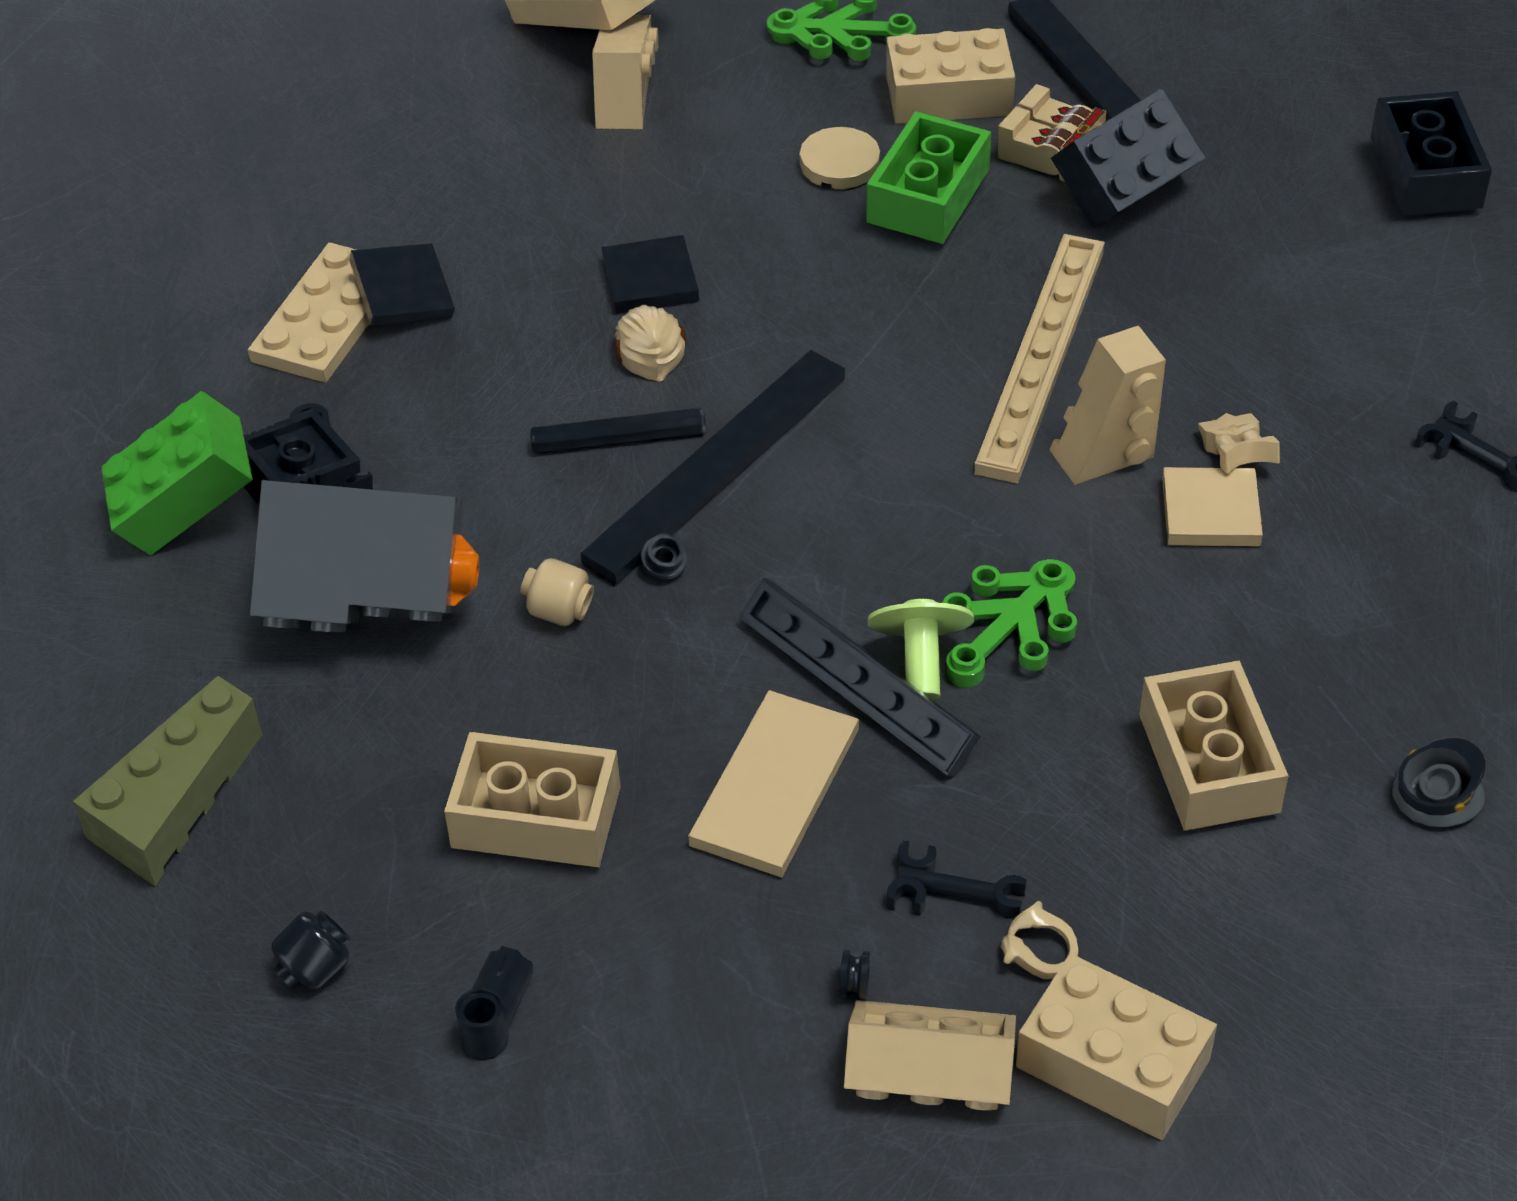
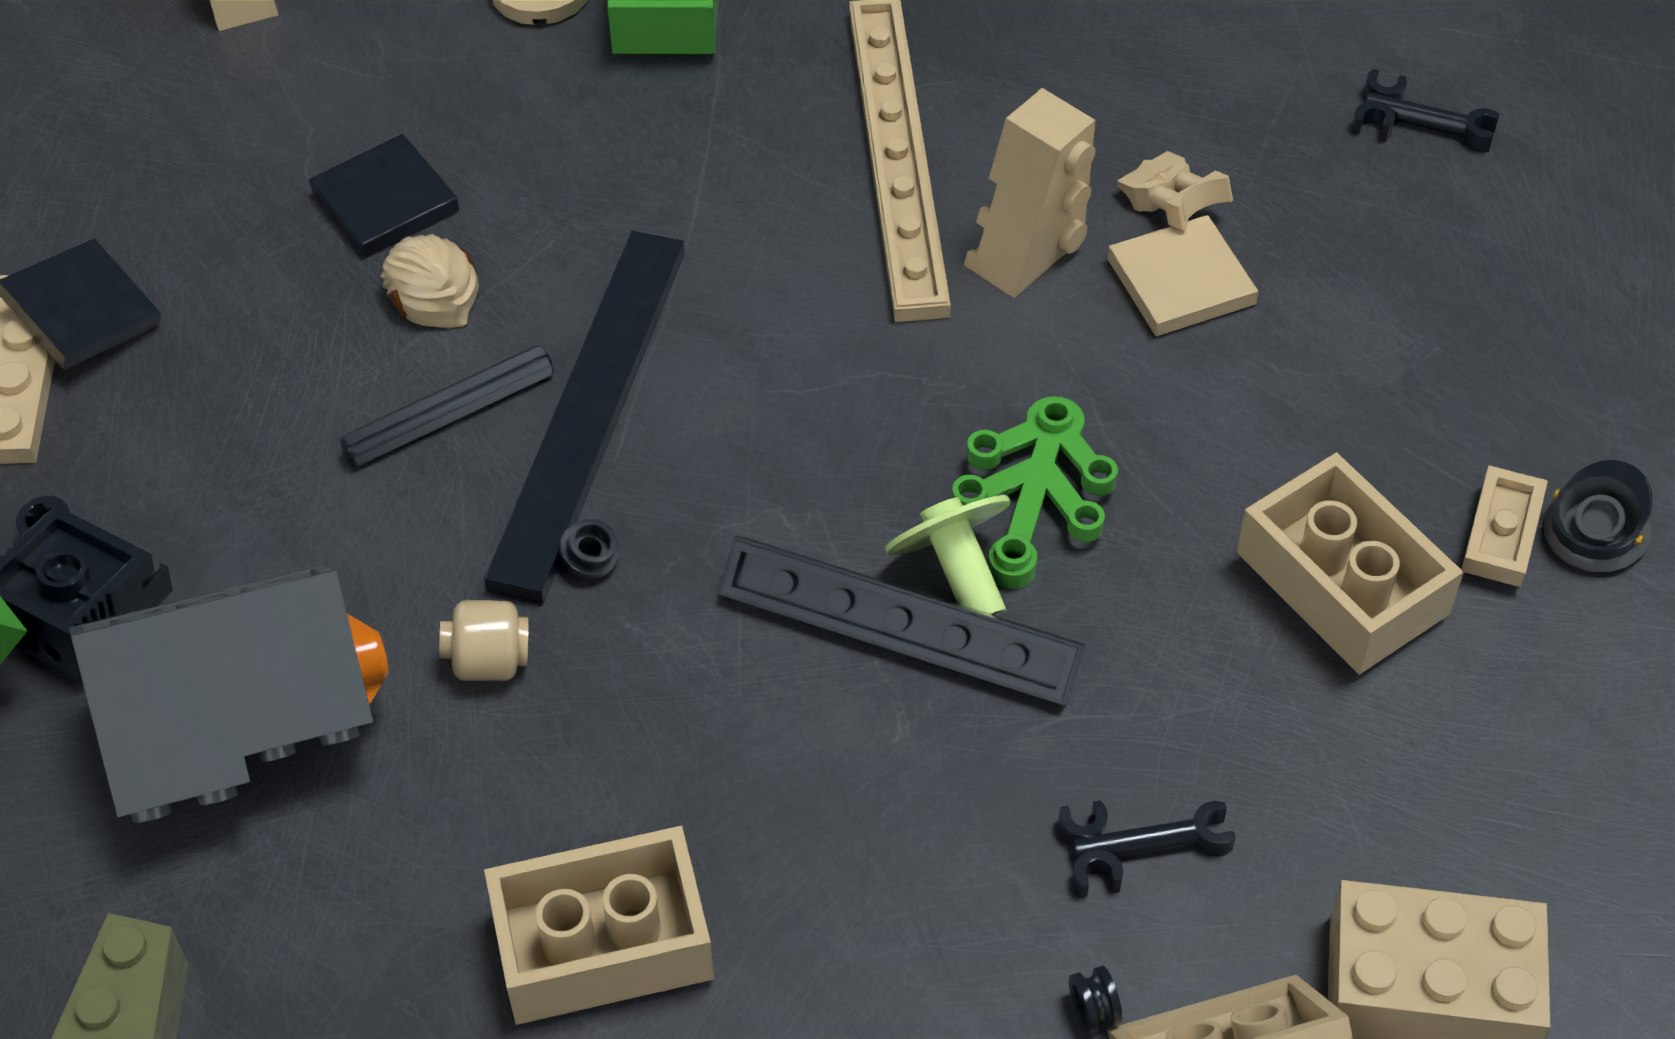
camera: 25 degrees left, 5 degrees up
(774, 783) = (869, 791): tan tile -> none
(1019, 953) = (1266, 897): tan piece -> none
(1359, 763) = (1504, 526): none -> tan plate

